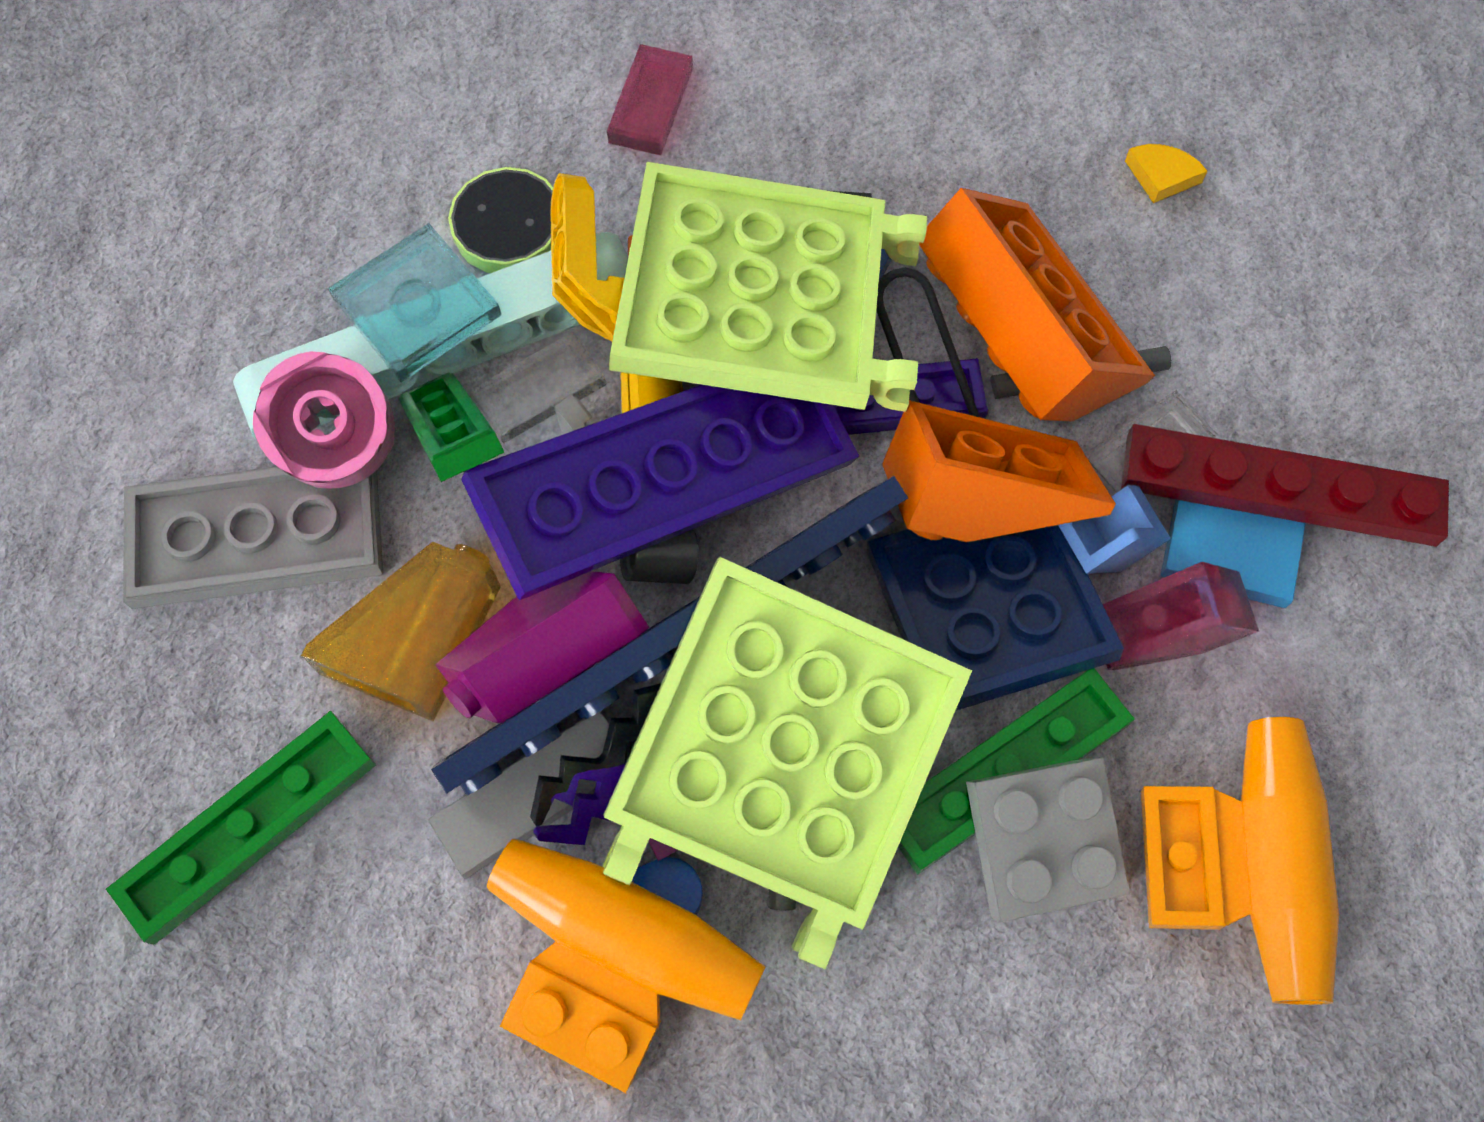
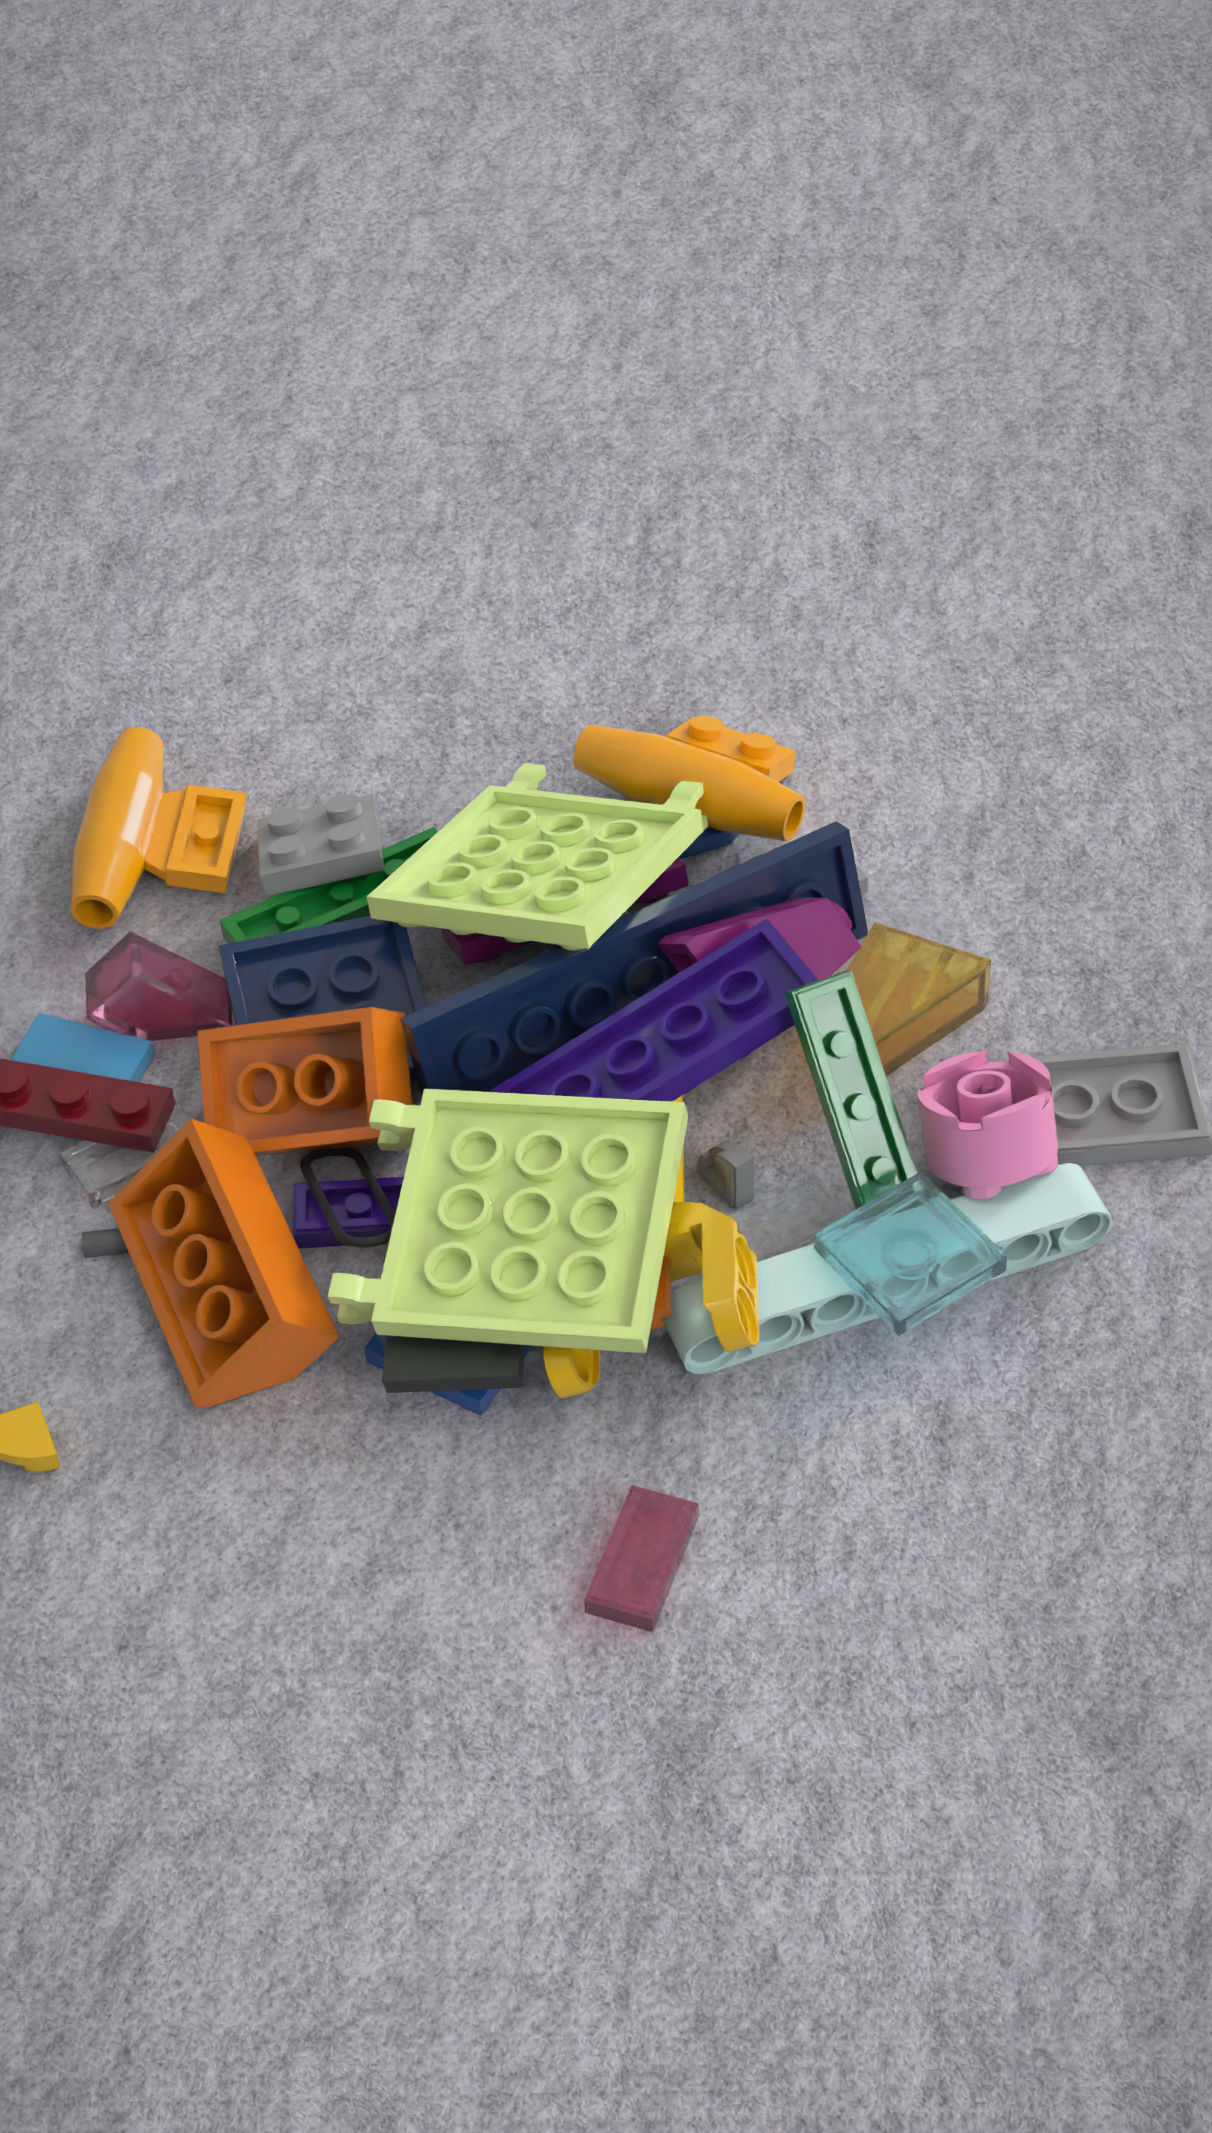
camera: 175 degrees left, 20 degrees down
(239, 828) = (1032, 876): green plate -> none
(502, 218) = (821, 1407): black tile -> none
(1117, 539) = (175, 1048): medium blue panel -> none

